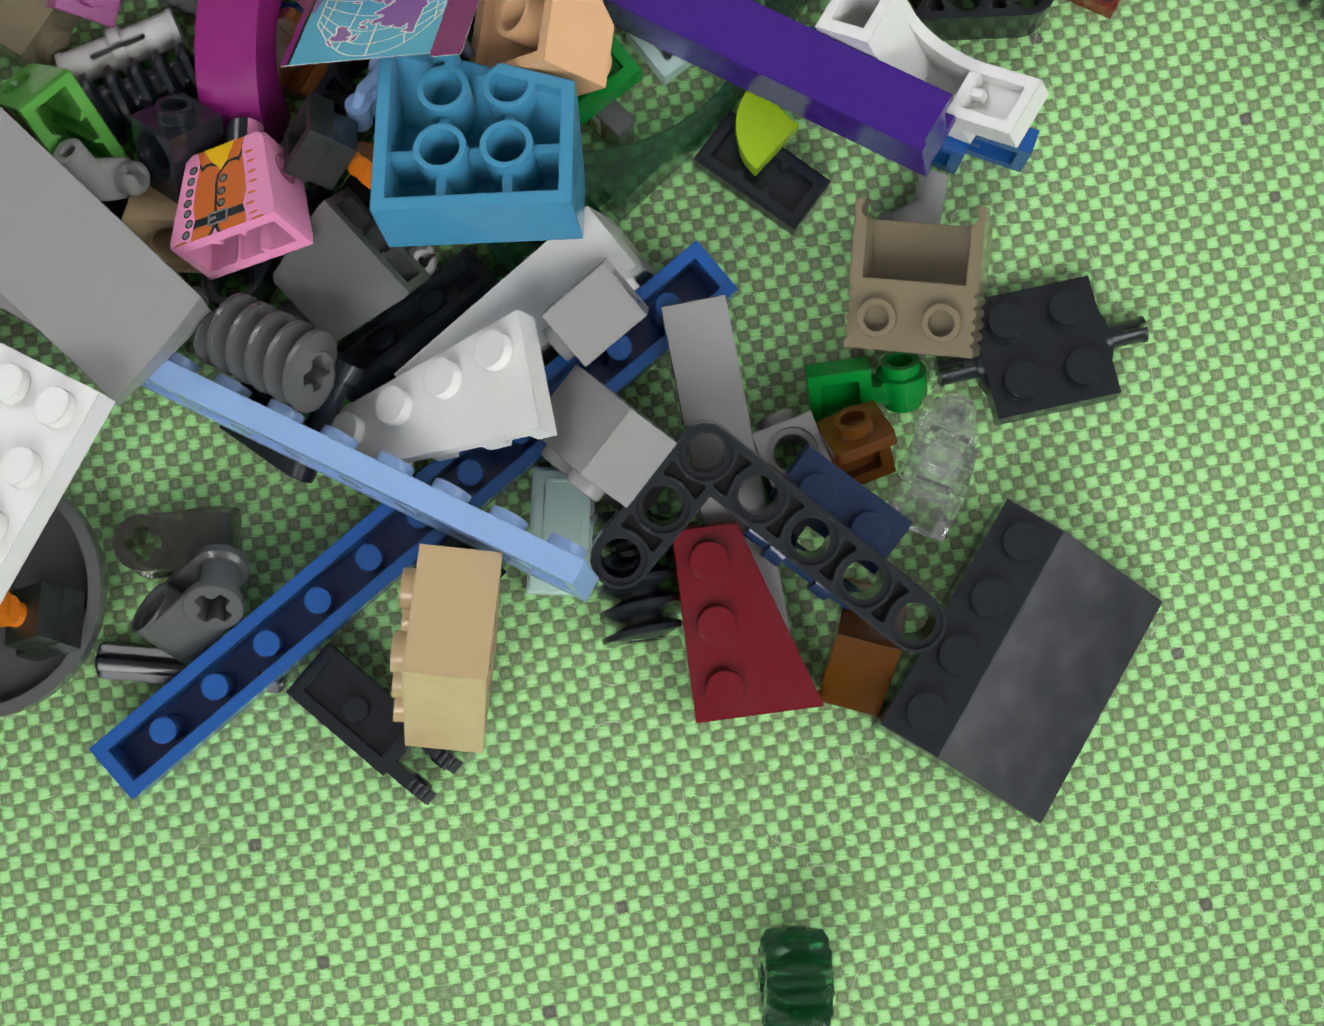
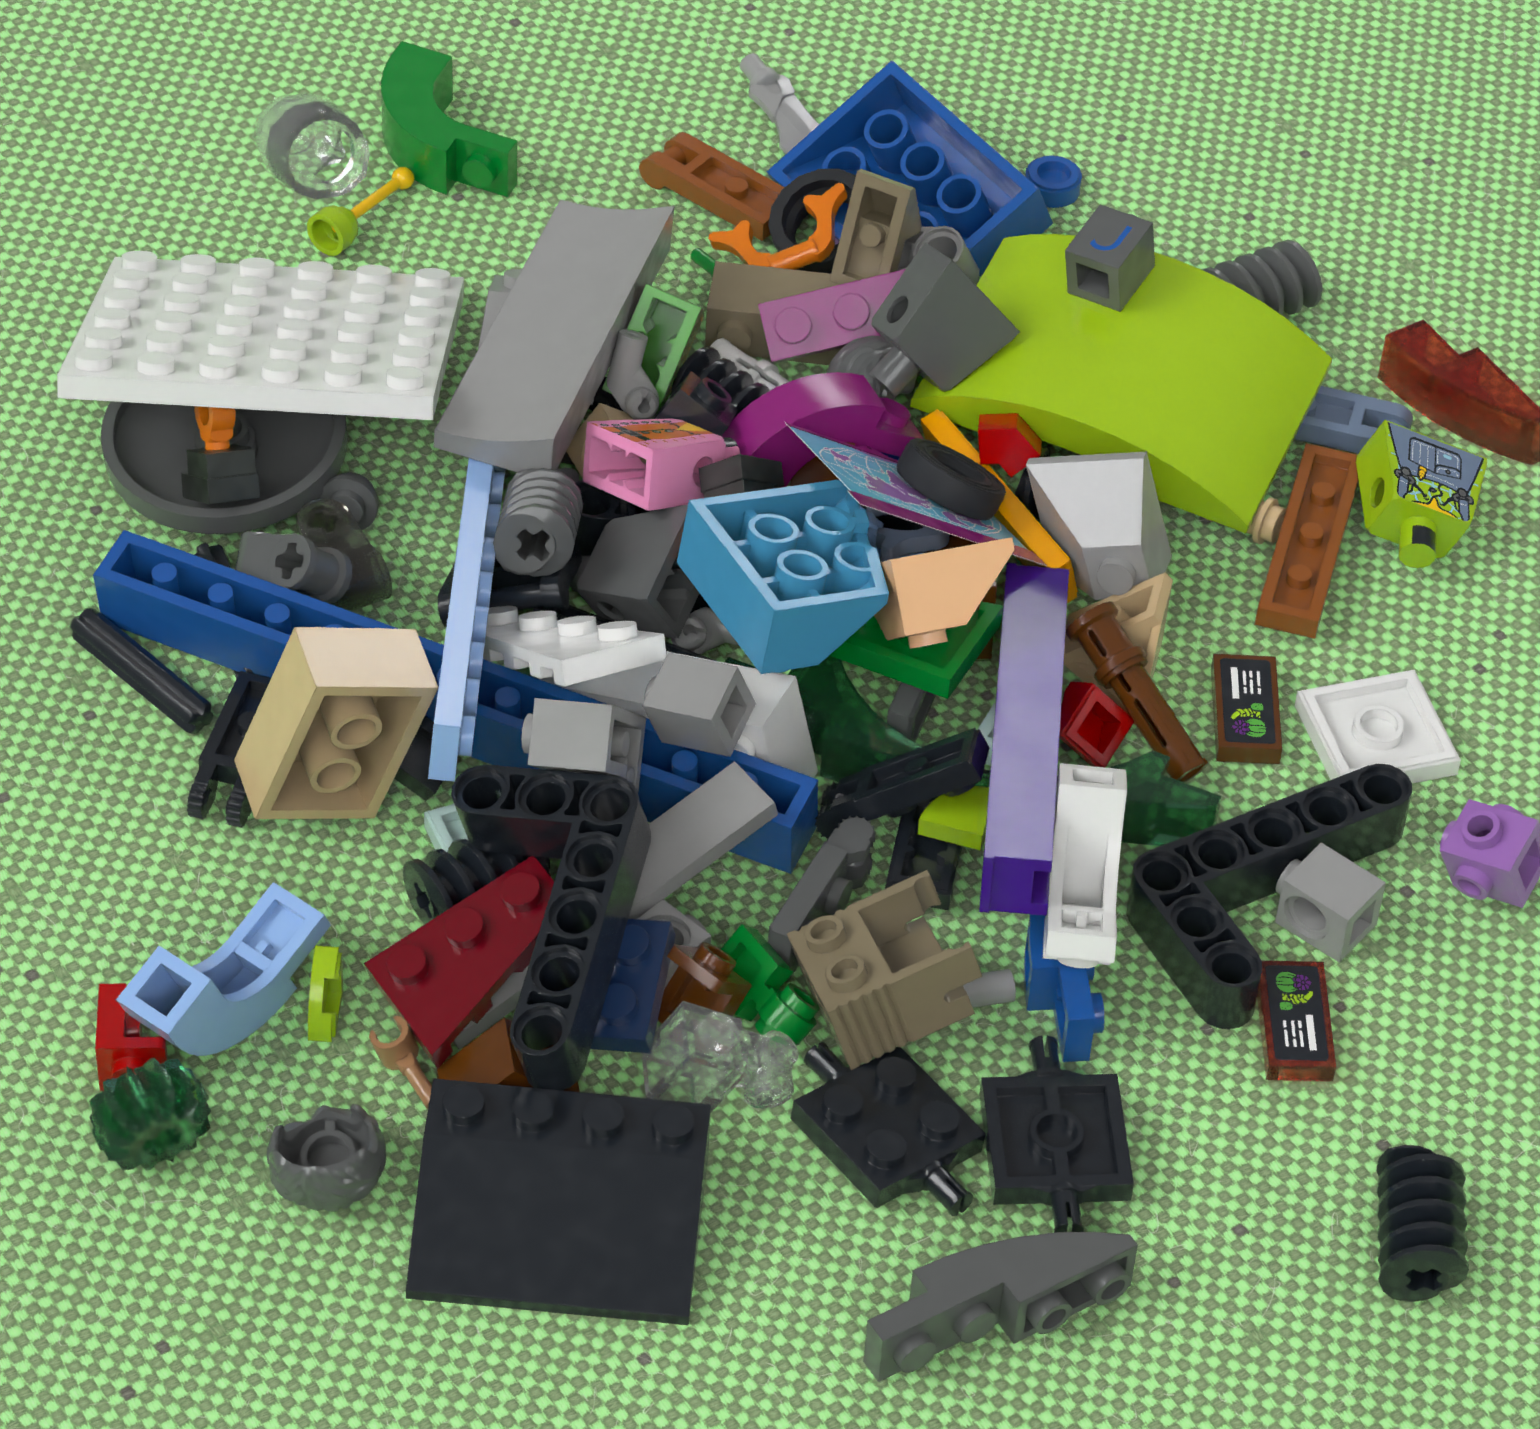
camera: 65 degrees right, 35 degrees down
(105, 501) = (356, 494): none -> dark grey plate
(230, 781) = (141, 670): none -> black axle
(673, 860) = (236, 987): none -> light blue arch
(677, 969) = (120, 1037): none -> red bracket
(706, 768) = (325, 993): none -> lime tile
(713, 158) = (905, 781): none -> black hinge
(778, 288) = (826, 884): none -> dark grey hinge
(804, 724) = (402, 1056): none -> medium nougat hand
(893, 840) = (327, 1158): none -> dark grey hair
(1117, 221) = (1055, 1138): none -> black plate
(1255, 325) = (1013, 1282): none -> dark grey slope

